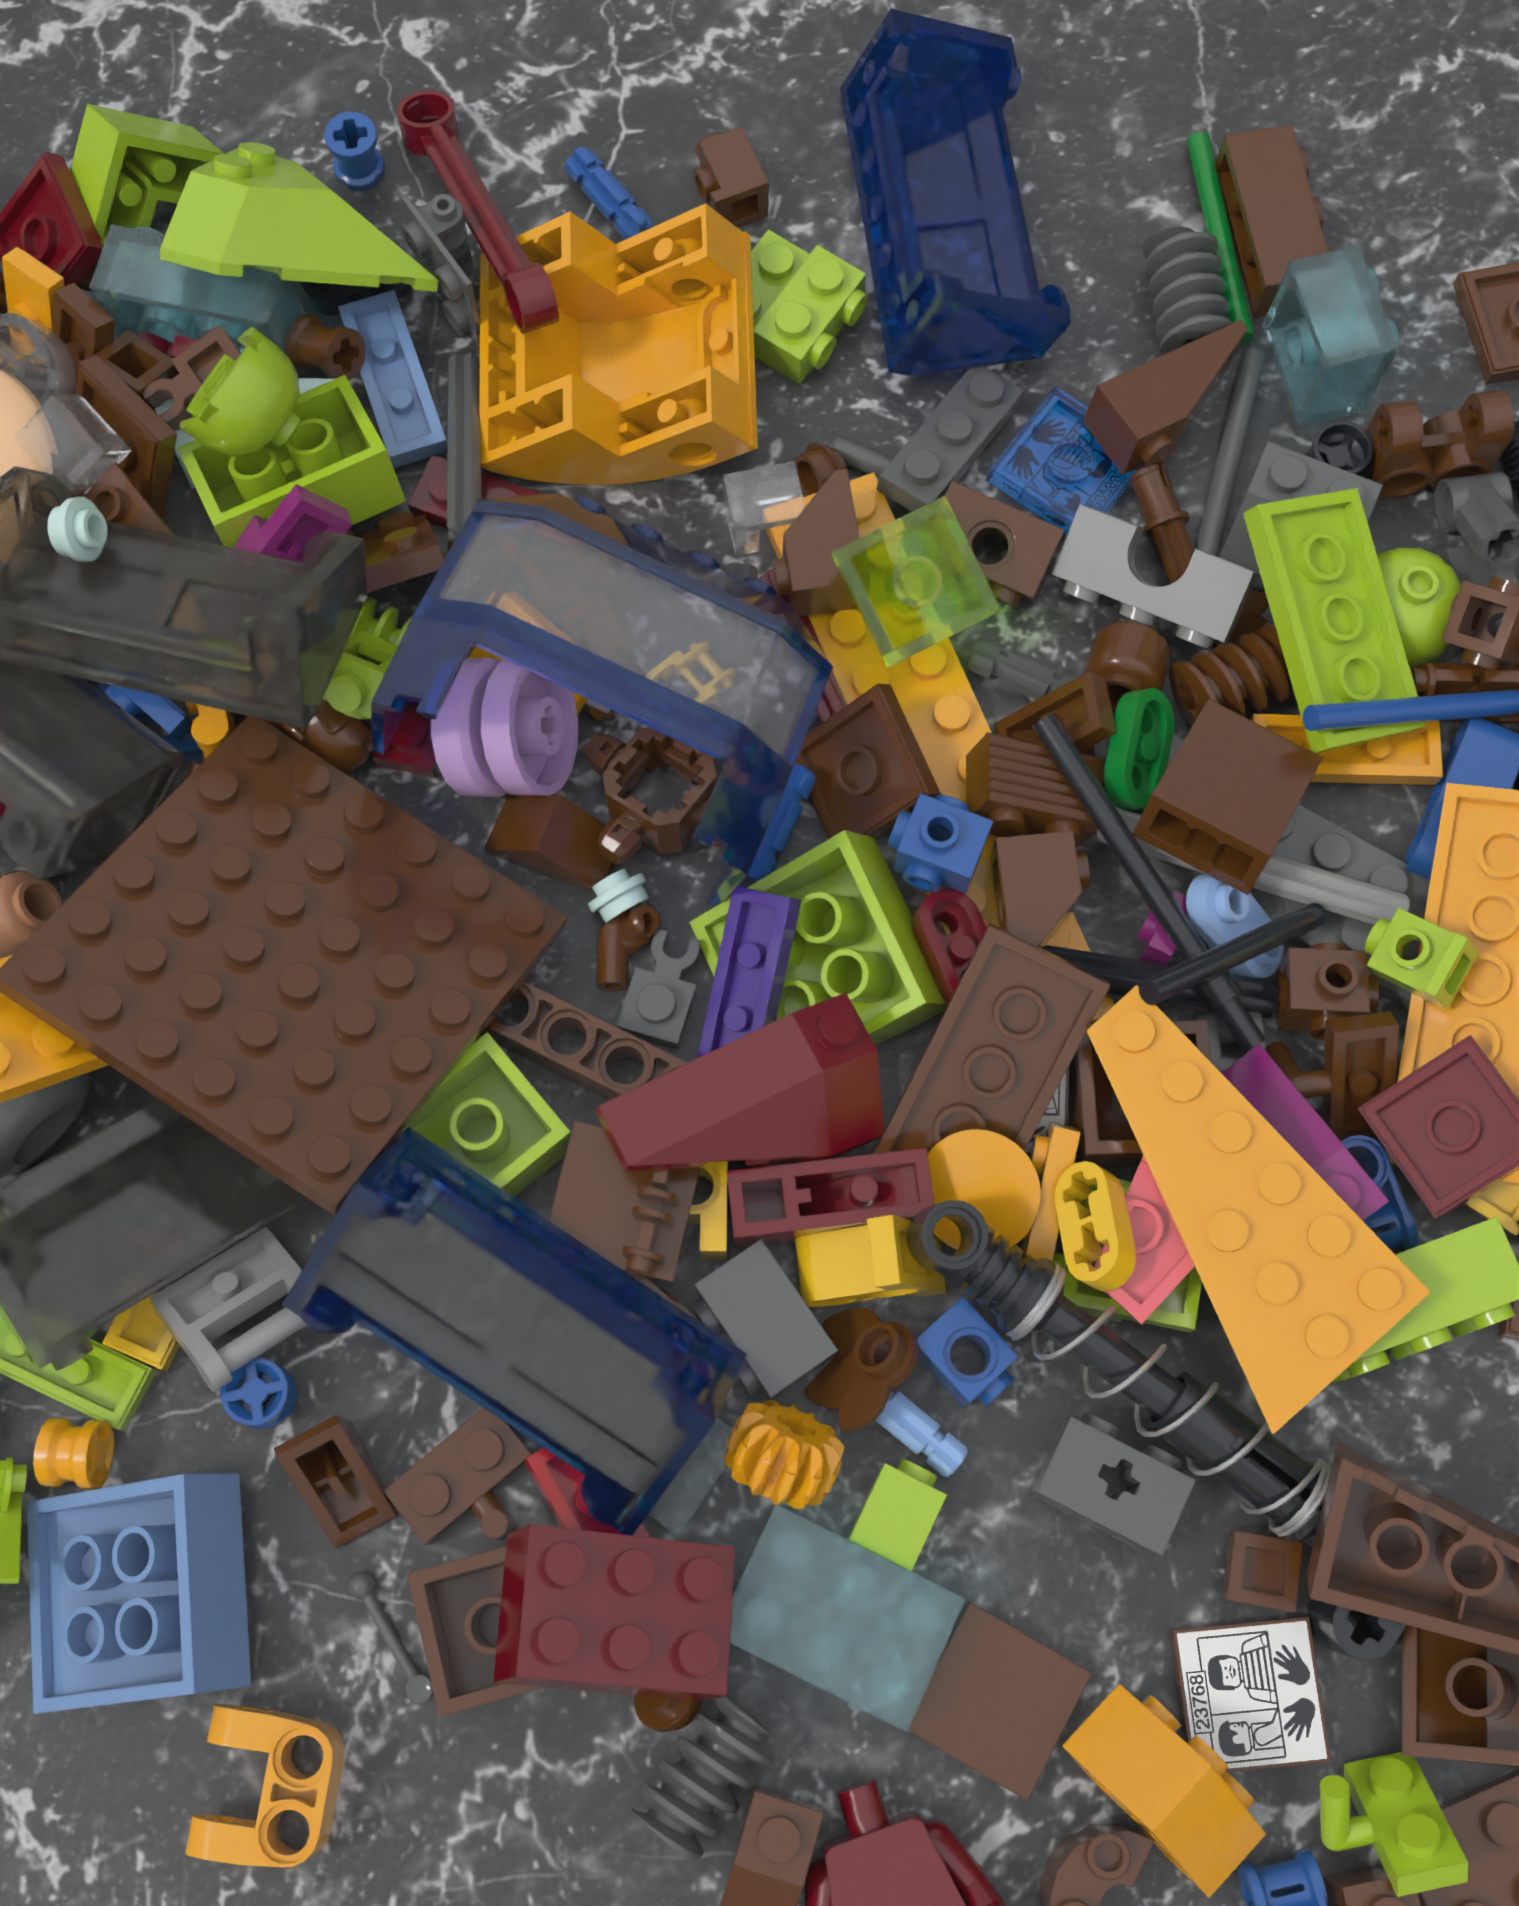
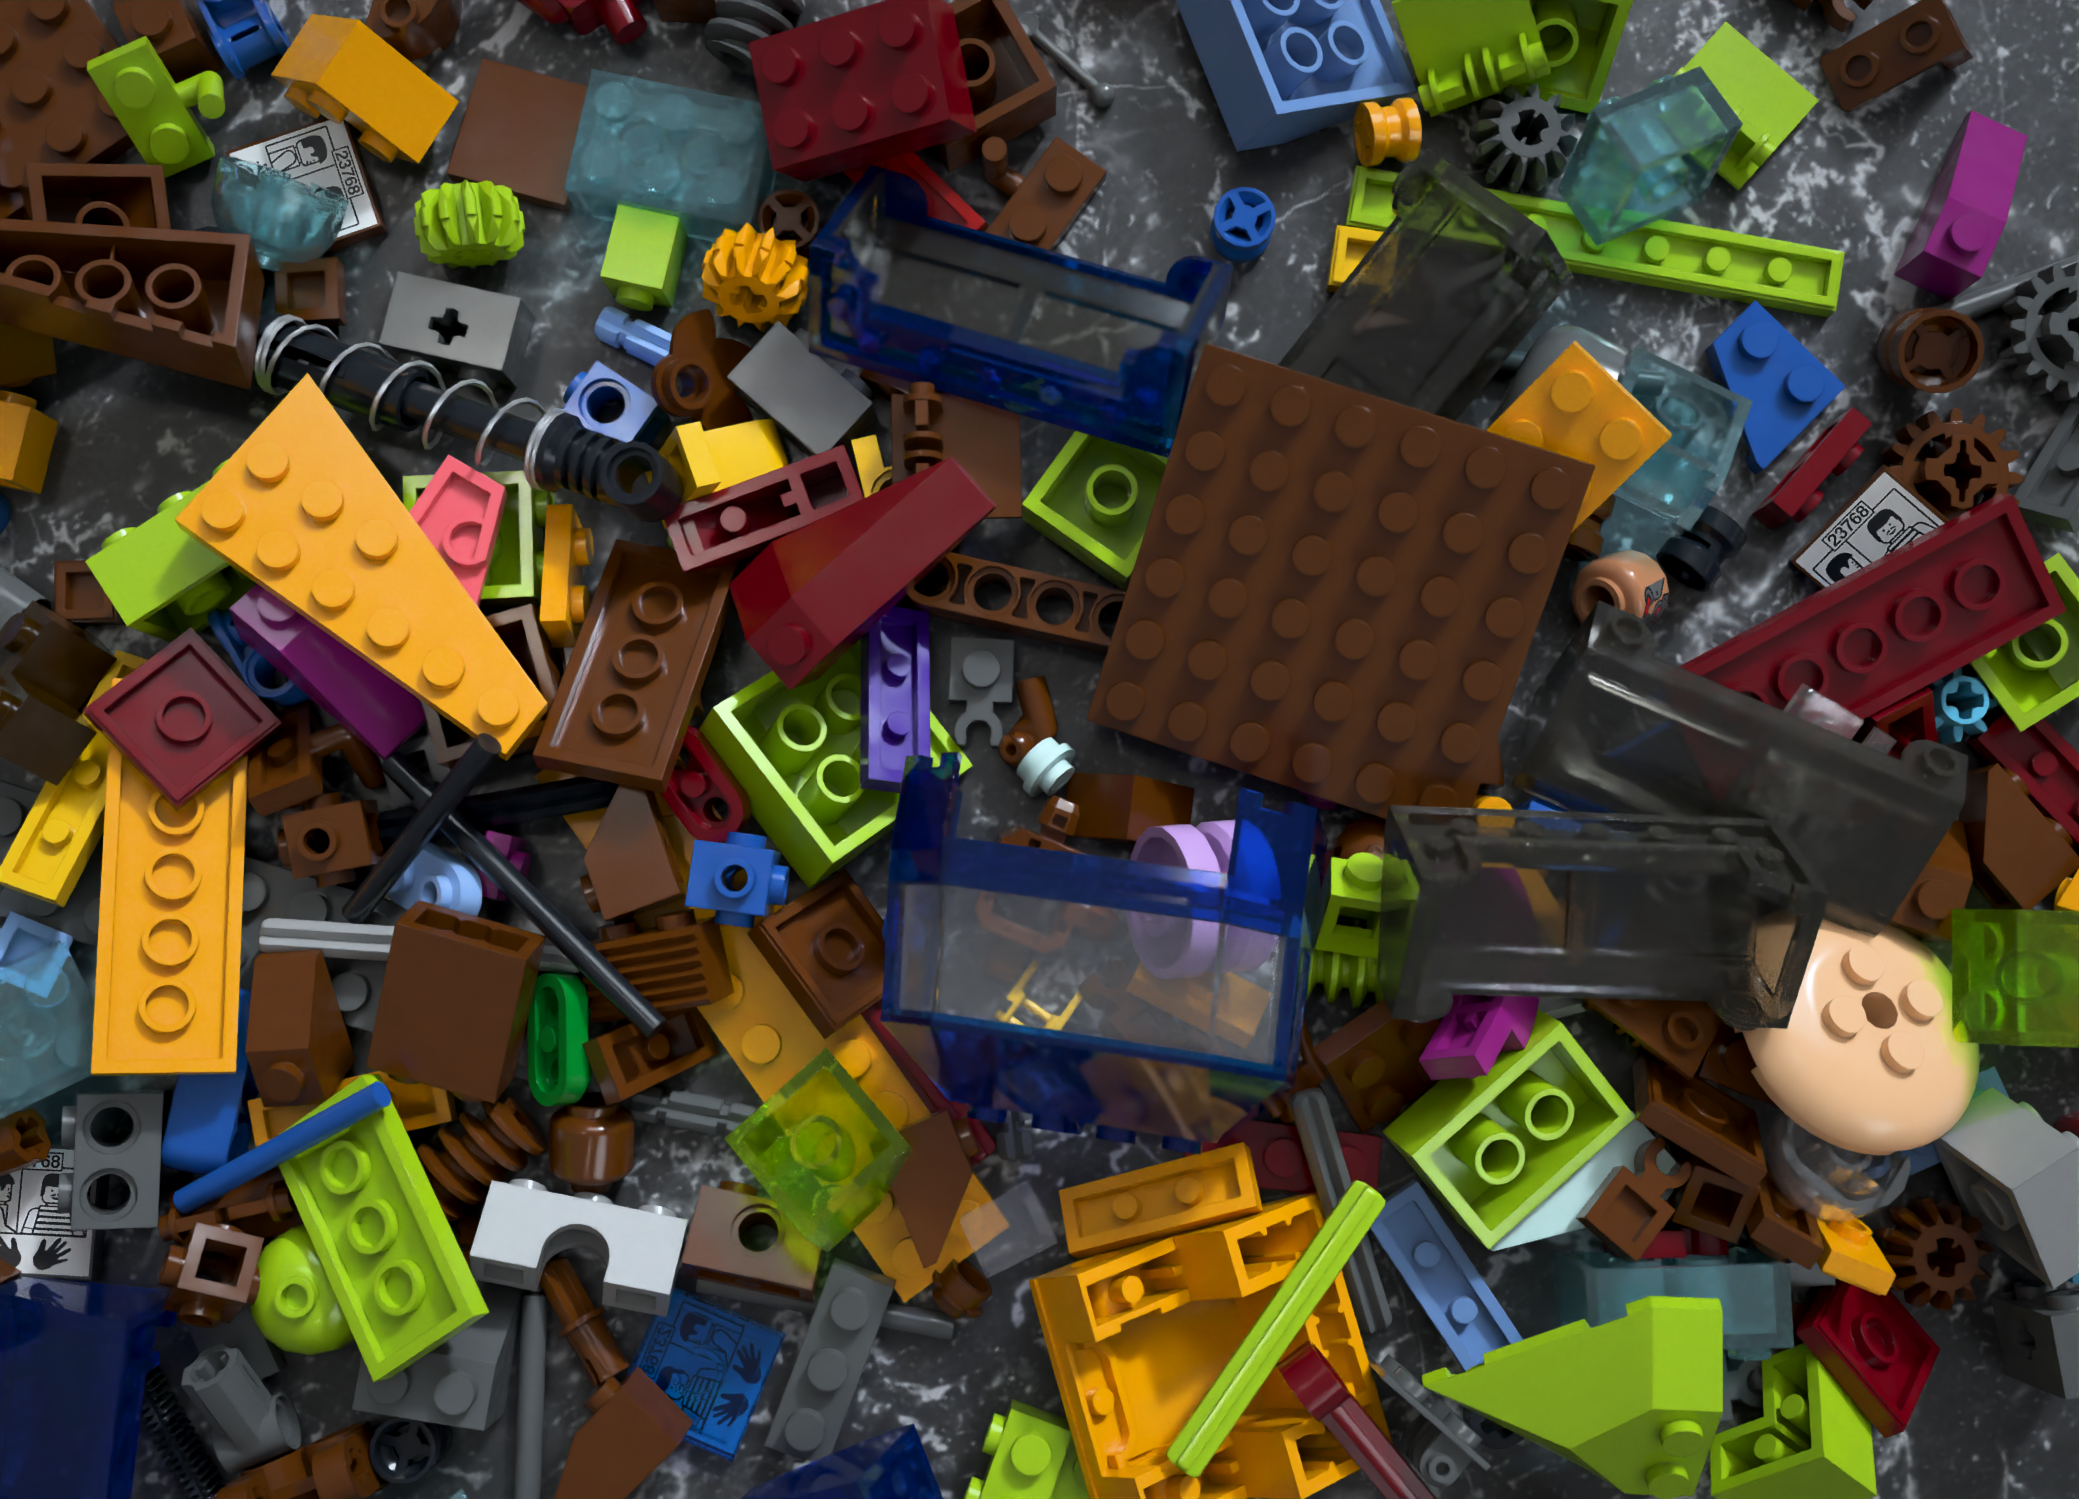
camera: 165 degrees right, 10 degrees up
(71, 442) = (1741, 1081): clear panel -> none
(77, 529) = (1694, 971): light aqua plate -> none
(225, 1295) = (1295, 293): light grey plate -> none
(246, 400) = (1576, 1167): lime cylinder -> none
(315, 344) = (1528, 1288): reddish brown bush -> none
(336, 1479) = (1152, 171): reddish brown slope -> none
(548, 349) = (1275, 1329): none -> lime axle
(631, 489) = (1160, 1200): none -> light orange plate
(732, 1512) = (786, 212): none -> reddish brown wheel
(990, 1176) = (623, 556): light orange sticker -> none
(1076, 1593) = (469, 224): none -> lime gear
(1104, 1223) = (507, 528): yellow beam -> none
(1282, 1652) = (279, 213): none -> clear light blue cylinder
(1386, 817) = (295, 1030): none -> reddish brown slope
(1435, 972) = (212, 880): lime brick -> none

